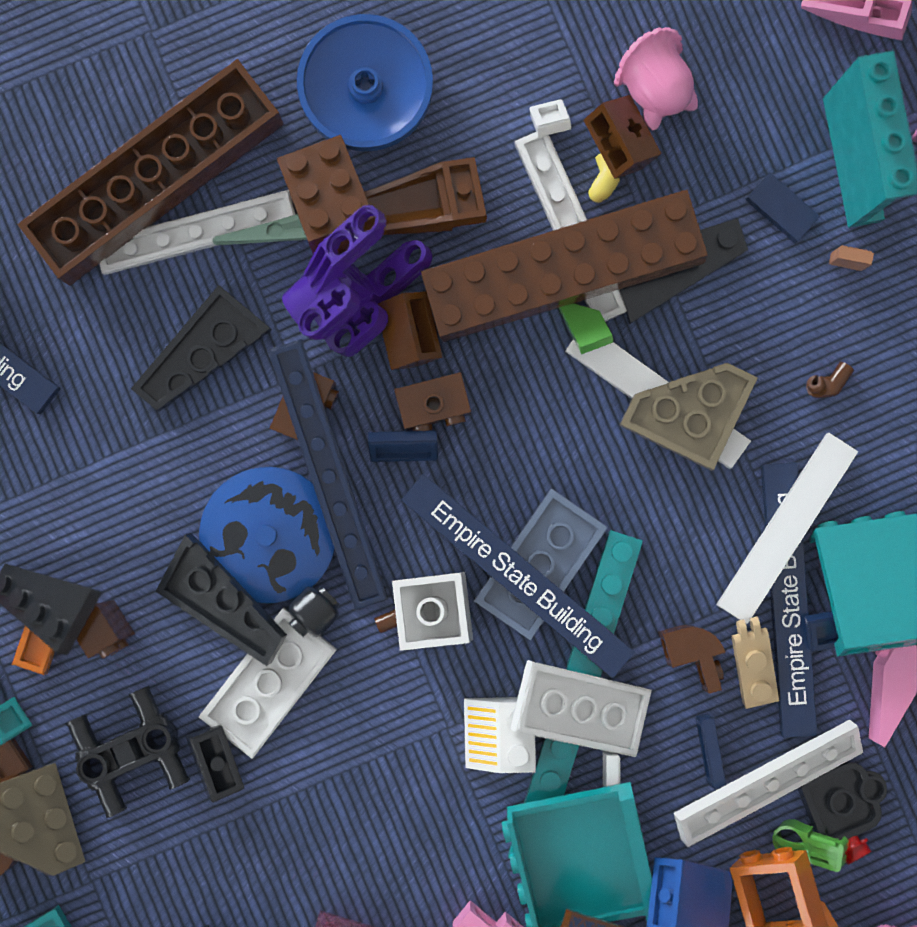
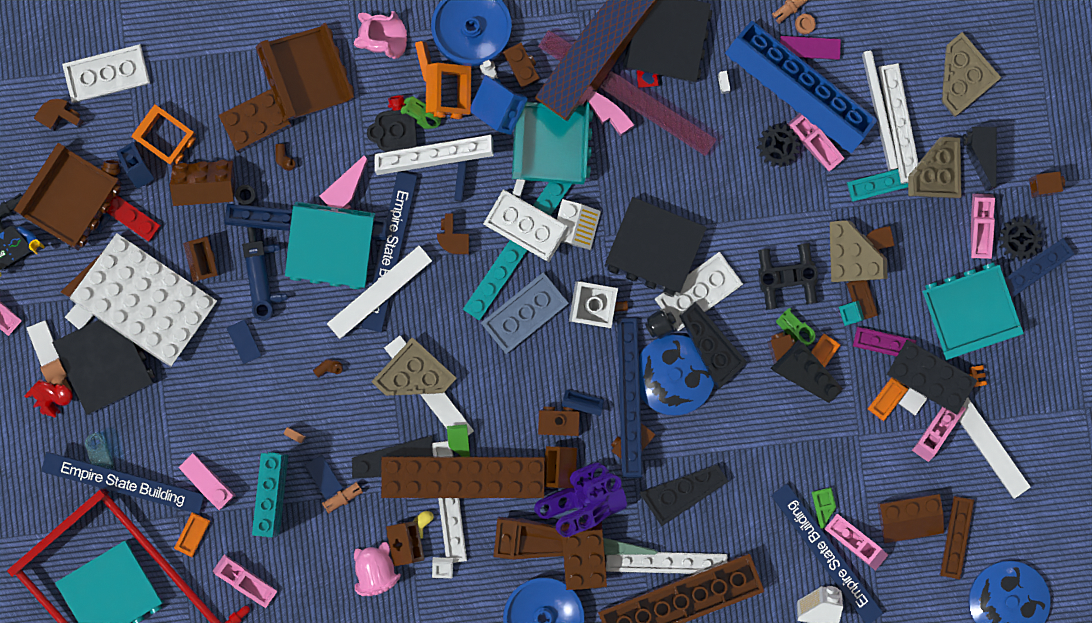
camera: 165 degrees left, 0 degrees up
(97, 672) = (792, 326): none -> bright green piece
(215, 763) = (741, 255): black slope -> none
(358, 736) = (655, 247): none -> black panel
(517, 576) = (540, 310): dark blue tile -> none
(742, 182) = (342, 497): none -> nougat pin
(754, 664) = (421, 221): tan hinge -> none

